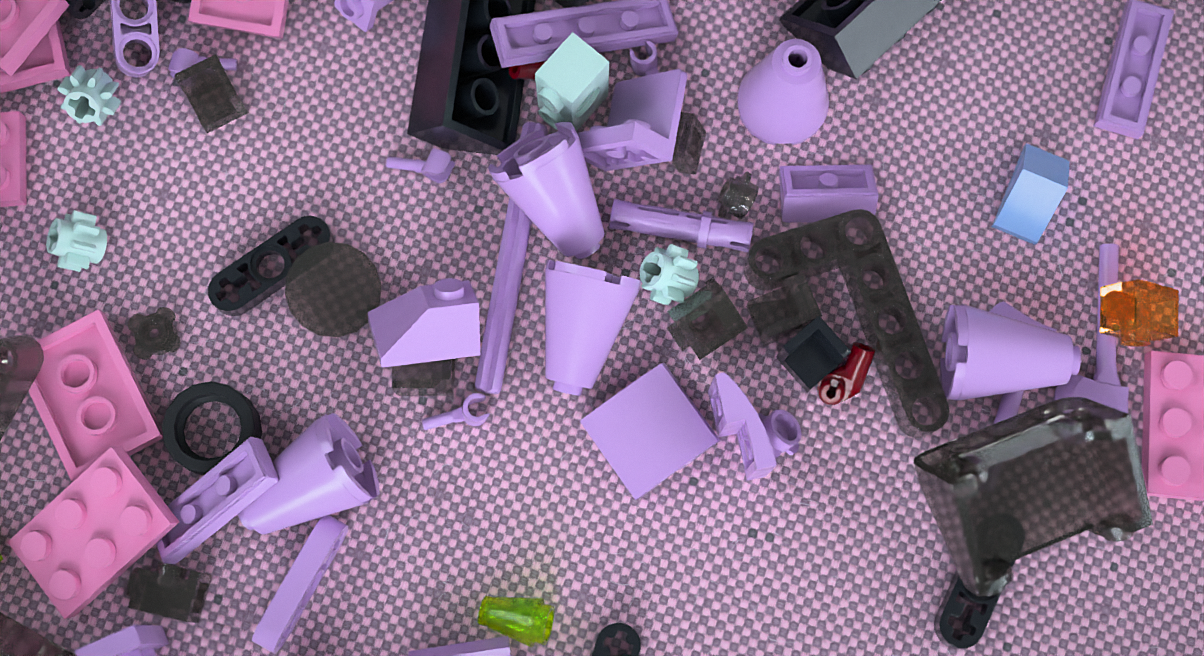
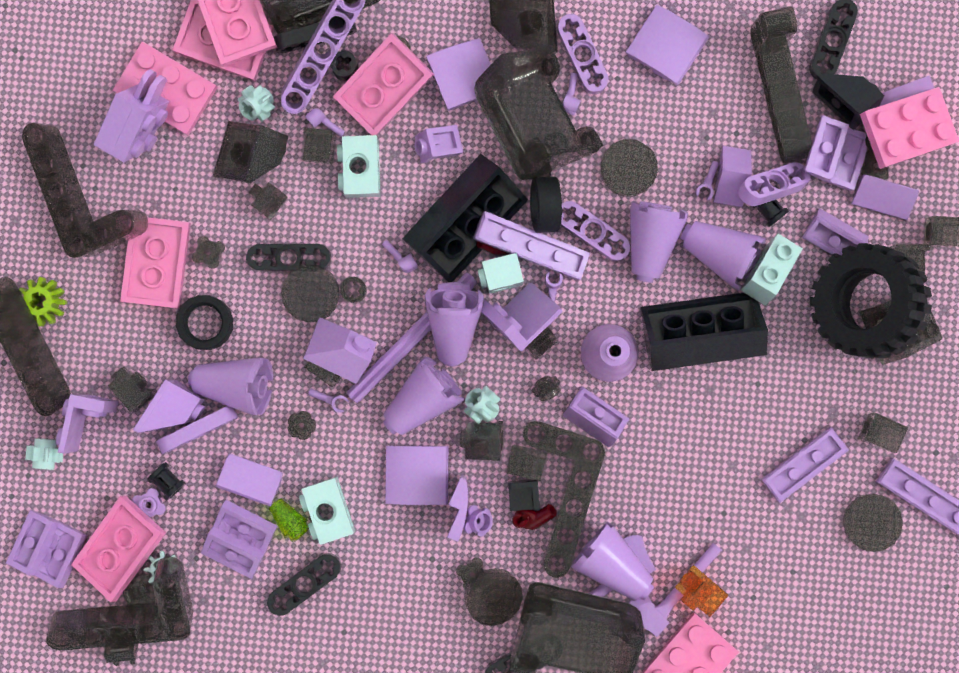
camera: 40 degrees right, 10 degrees up
(76, 241) = (200, 178): light aqua gear -> none
(93, 532) = (114, 334): bright pink plate -> none
(121, 158) = (249, 152): none -> clear smoke slope
(190, 207) = (267, 199): none -> clear smoke tile
(218, 498) = (181, 361): lavender tile -> none
(240, 577) = (171, 407): none -> lavender slope
(278, 59) = (365, 149): none -> light aqua brick
(382, 234) = (344, 288): none -> clear smoke bush
(423, 599) = (249, 479): none -> lavender slope
(441, 463) = (302, 417): none -> clear smoke plate
(547, 538) = (330, 493): none -> light aqua brick
(680, 225) = (507, 382): lavender pin -> none
(836, 506) = (465, 570): none -> clear smoke plate
(874, 519) = (493, 597): none -> clear smoke tile
(1032, 194) = (700, 492): light blue slope -> none

